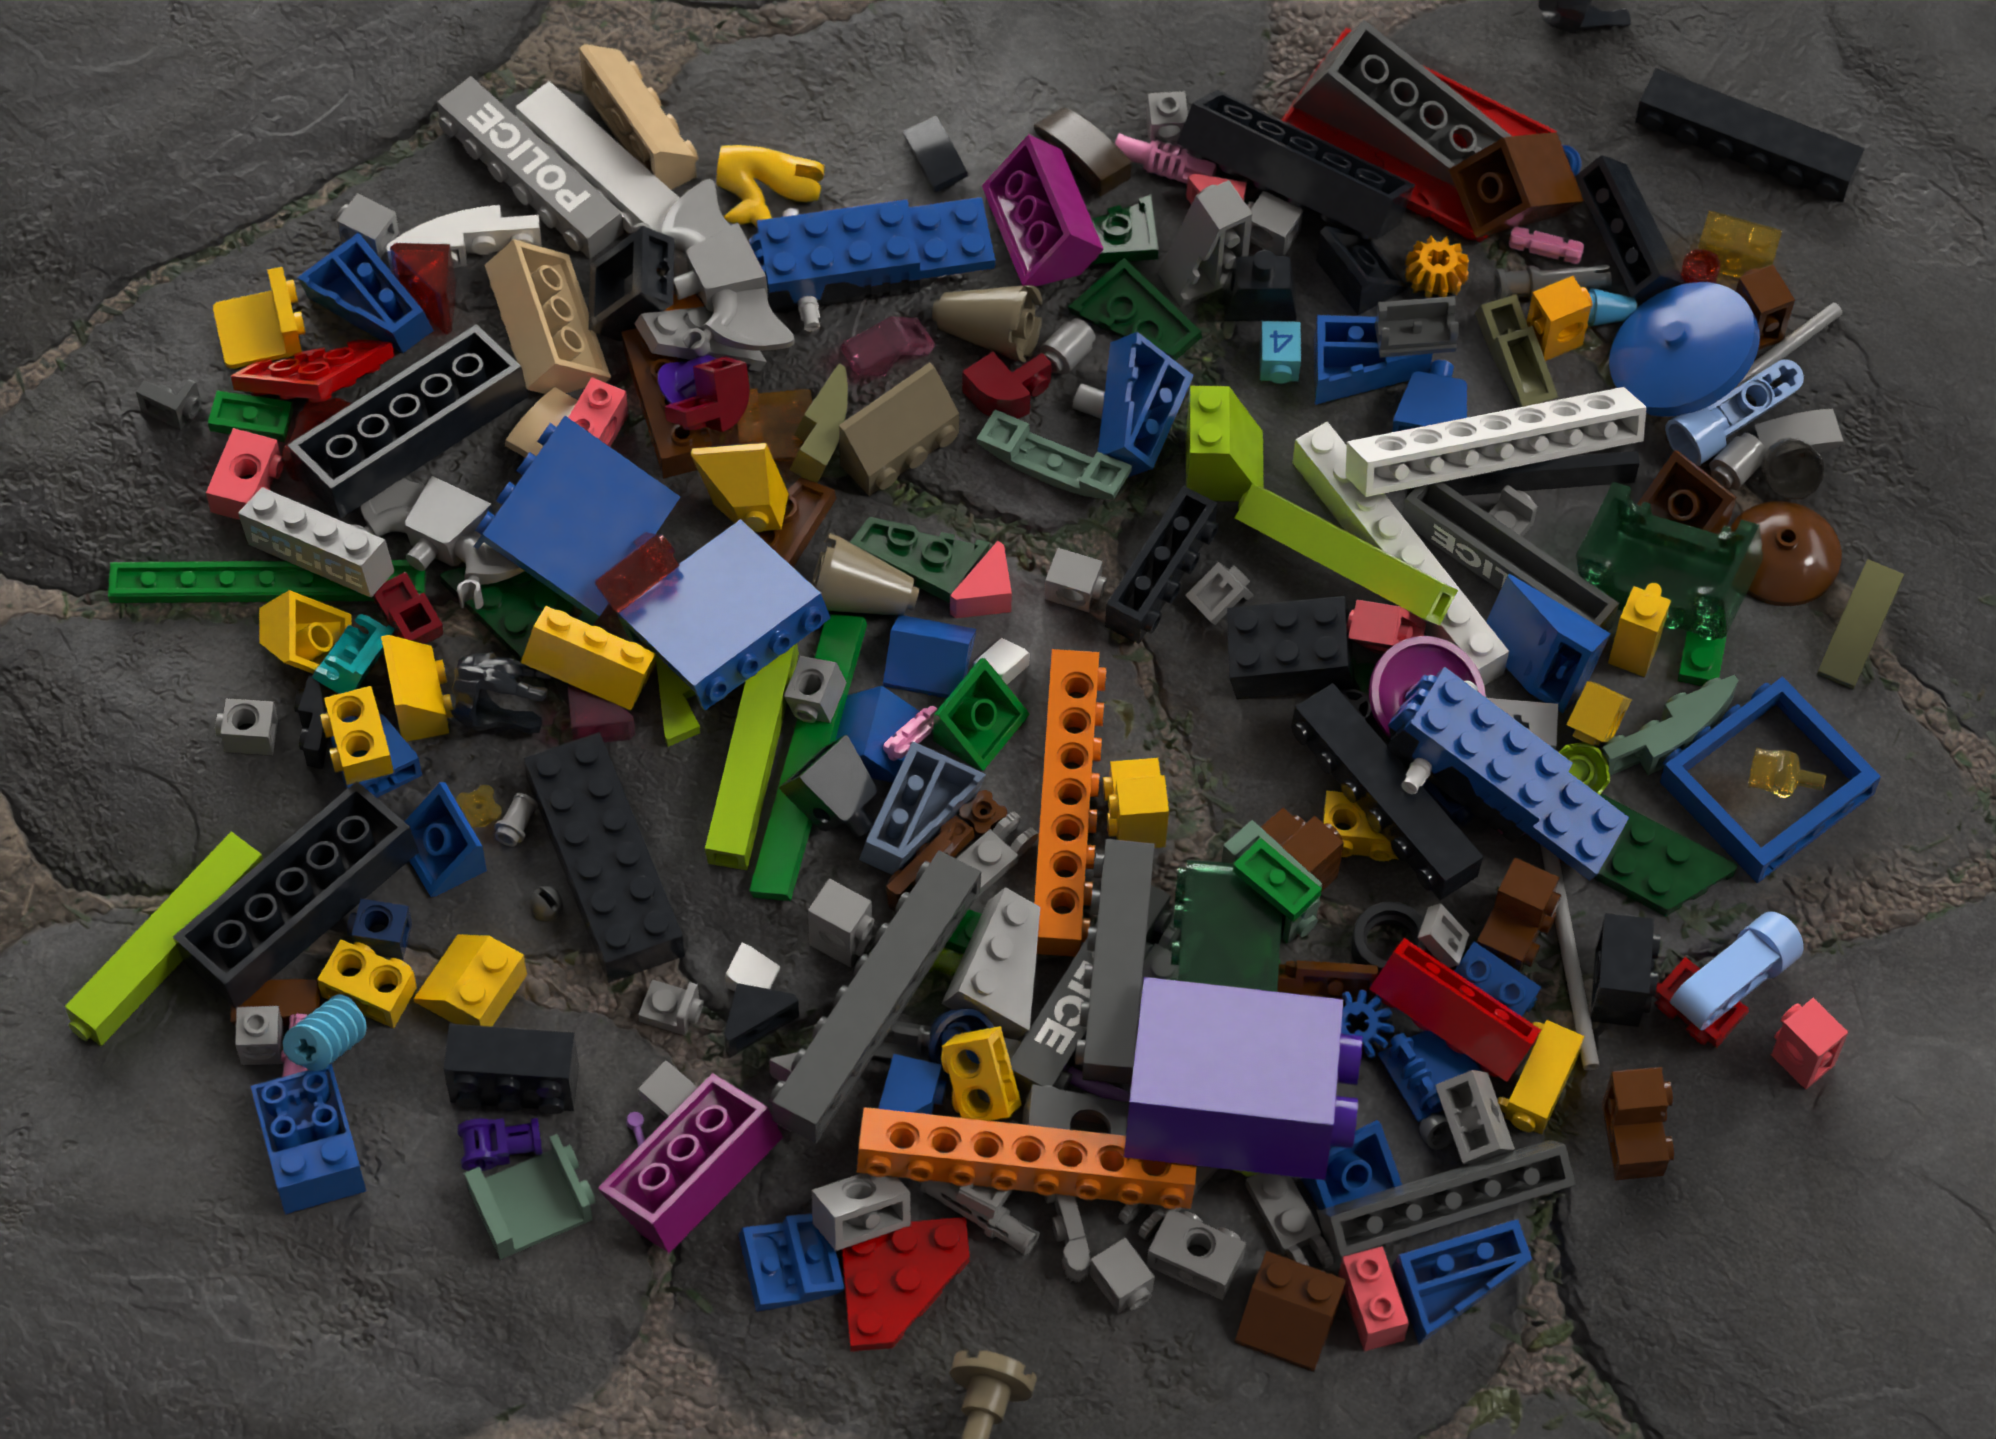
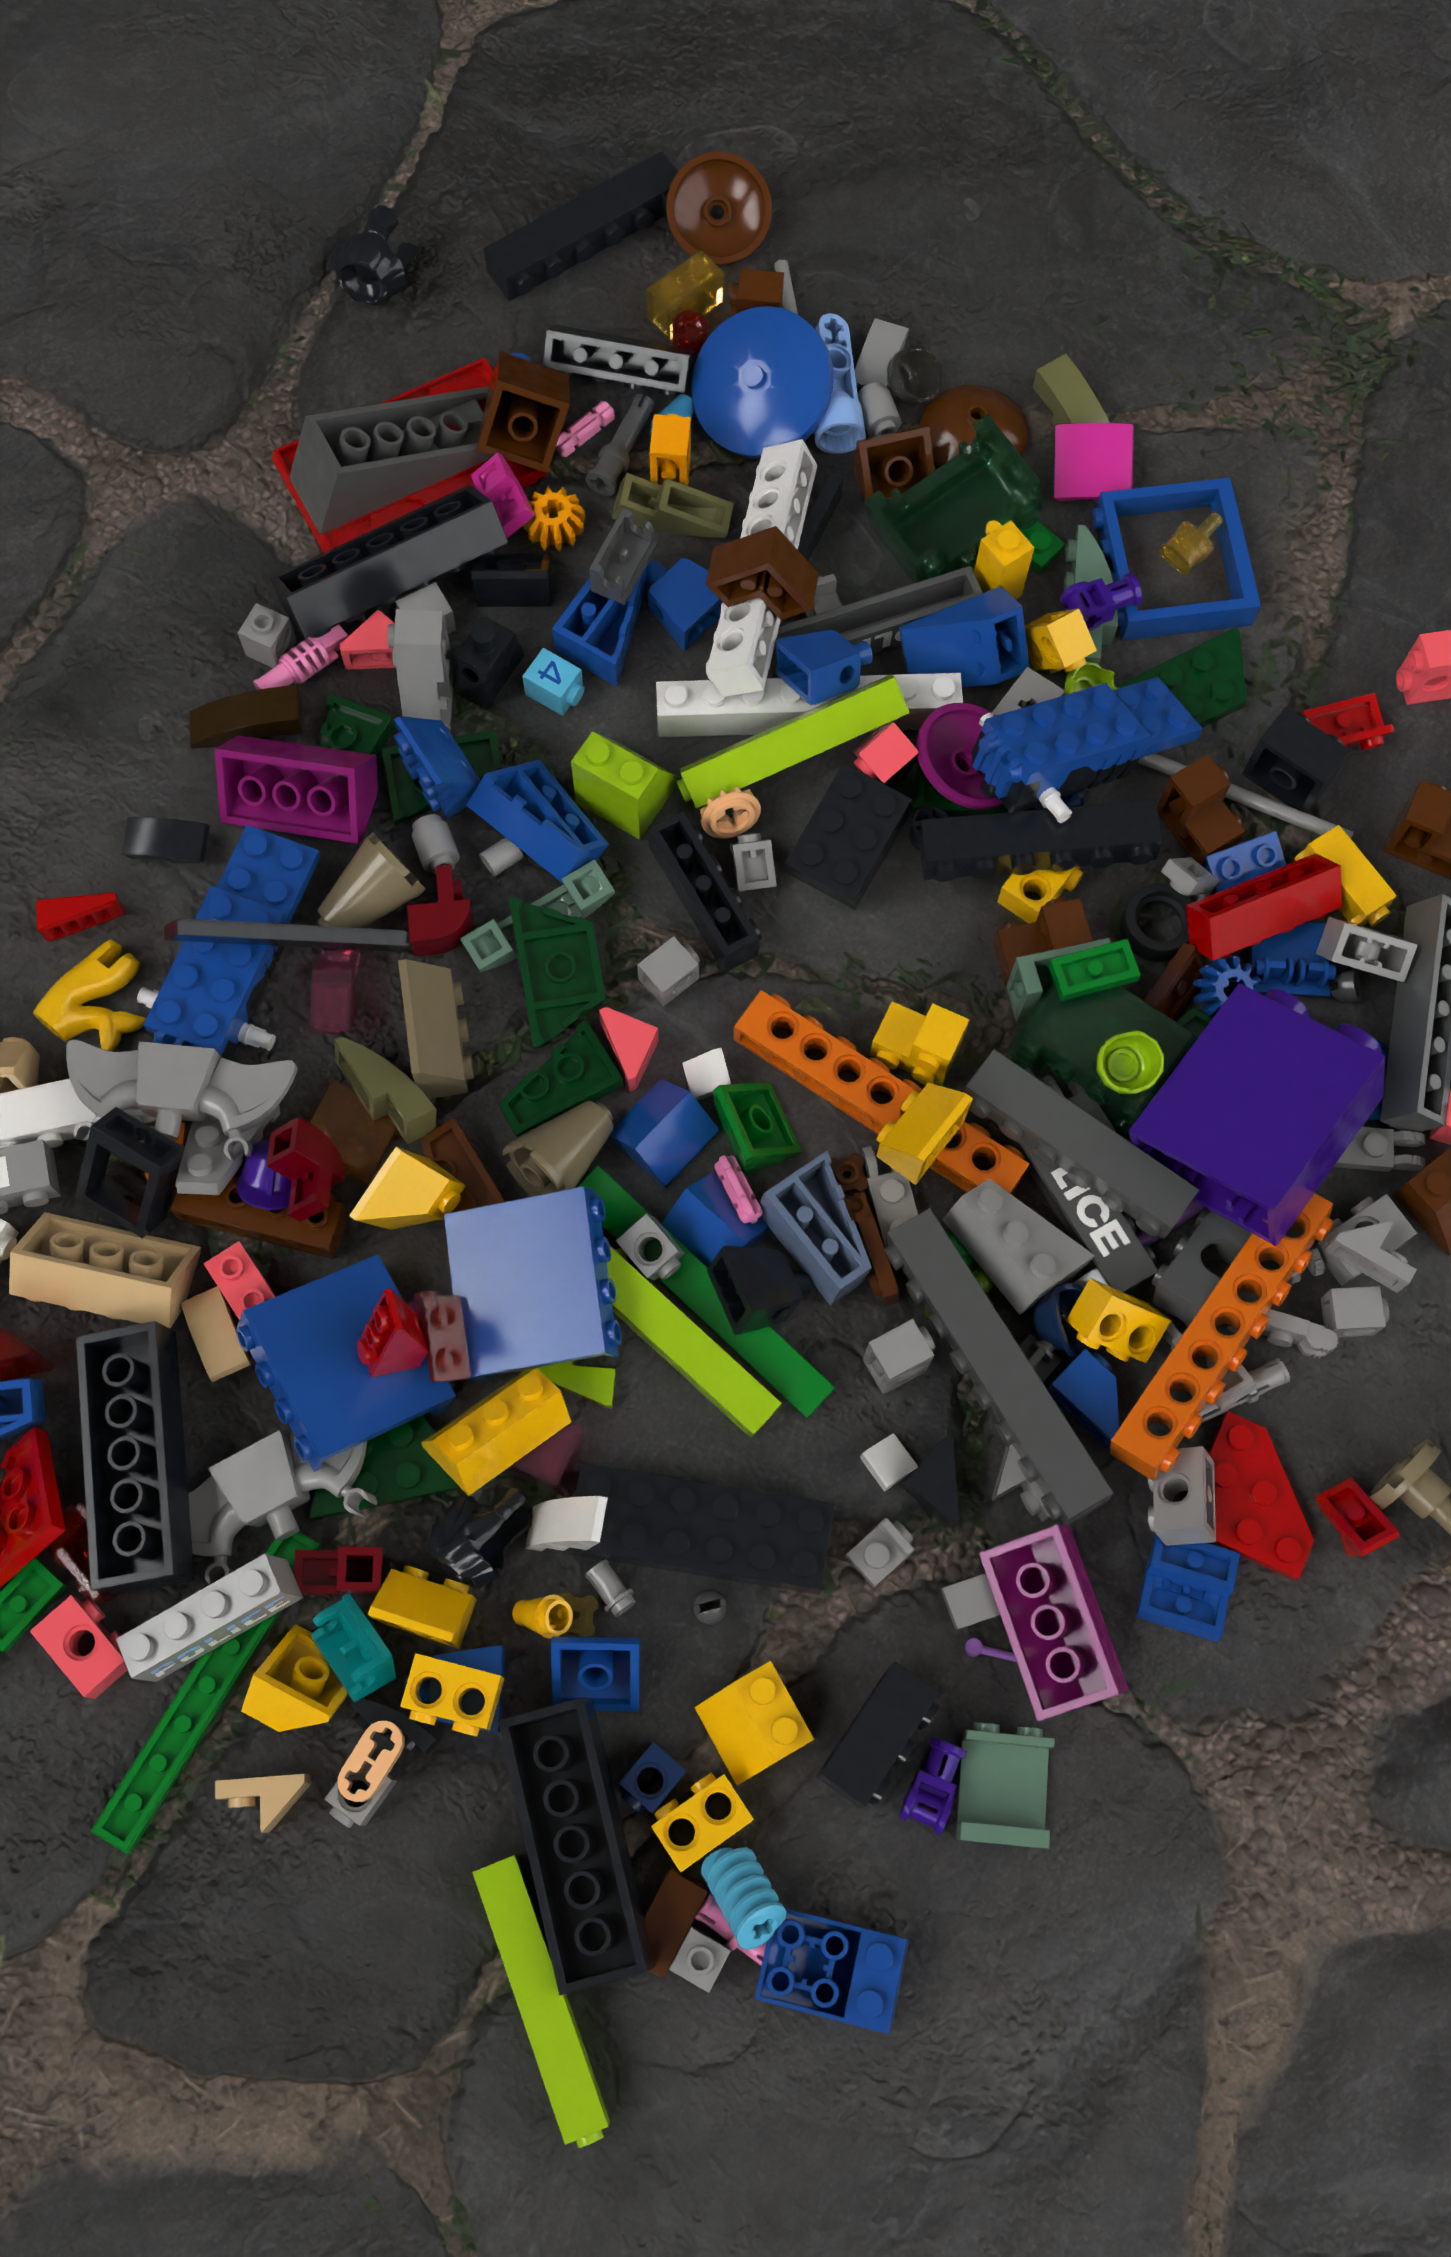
camera: 60 degrees left, 10 degrees up
(208, 667) = (275, 1793): none -> tan slope
(273, 711) = (380, 1767): none -> light nougat beam
(466, 785) = (544, 1615): none -> yellow cone
(539, 740) = (567, 1523): none -> white slope
(610, 527) = (392, 1337): none -> red slope
(824, 126) = (74, 914): none -> red slope
(898, 274) = (285, 935): none -> black tile
(927, 1363) = (1356, 1518): none -> red slope
(1016, 495) = (556, 968): none -> dark green wing
(1045, 833) = (923, 1130): none -> yellow slope
(1126, 291) = (438, 761): none -> blue slope
(1175, 1238) = (1363, 1252): none -> light grey slope
(1205, 945) = (1130, 1062): none -> lime hair
(1239, 549) = (745, 813): none -> light nougat gear
(1427, 213) = (501, 486): none -> dark pink slope
(1427, 532) = (820, 664): none -> blue torso
(1470, 432) = (765, 568): none -> reddish brown brick
(1659, 724) = (1099, 601): none -> dark purple connector
(1757, 954) = (1346, 678): light blue beam -> none
(1817, 658) = (1092, 460): none -> dark pink slope
(1828, 205) = (724, 183): none -> reddish brown dish

